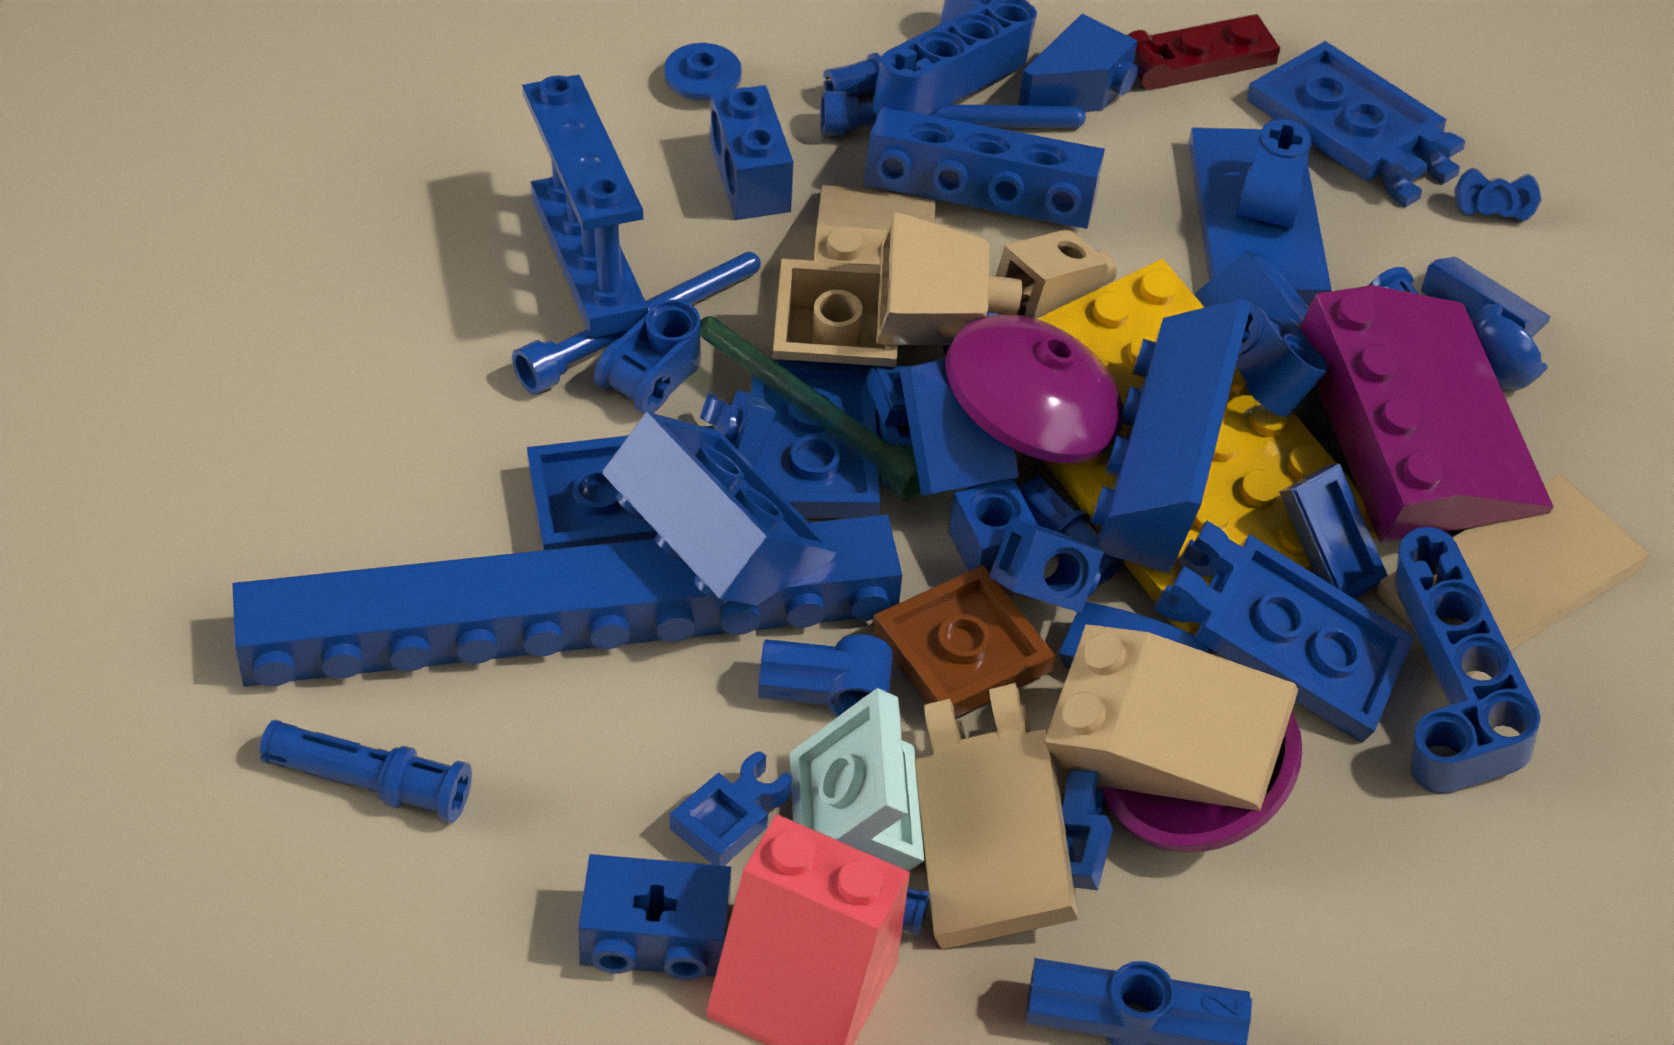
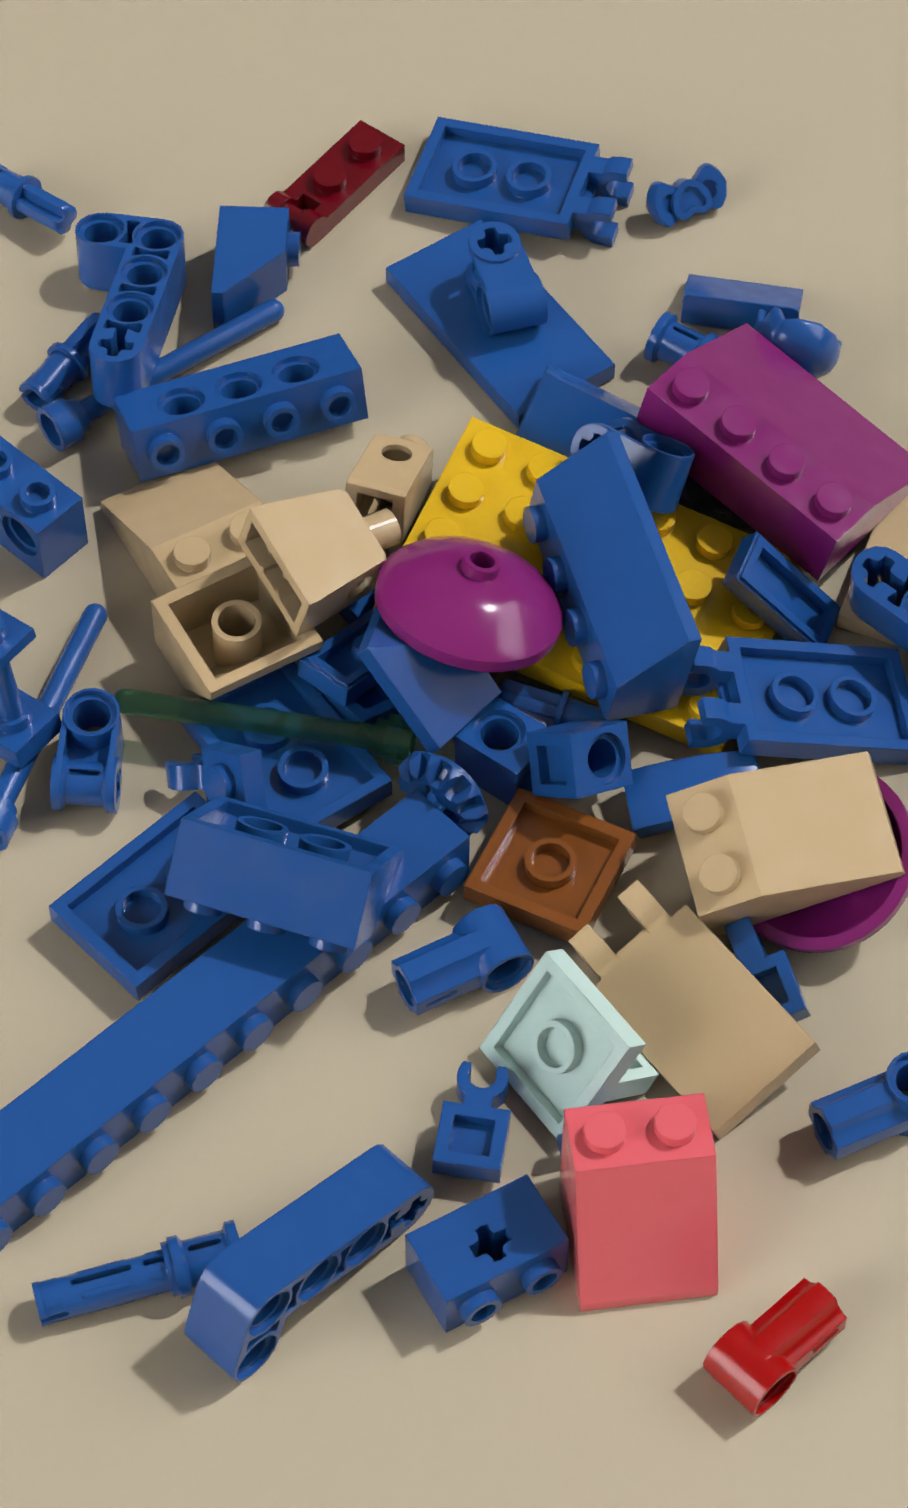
camera: 30 degrees left, 5 degrees up
(497, 817) = (298, 1255): none -> blue beam
(913, 532) = (446, 787): none -> blue gear

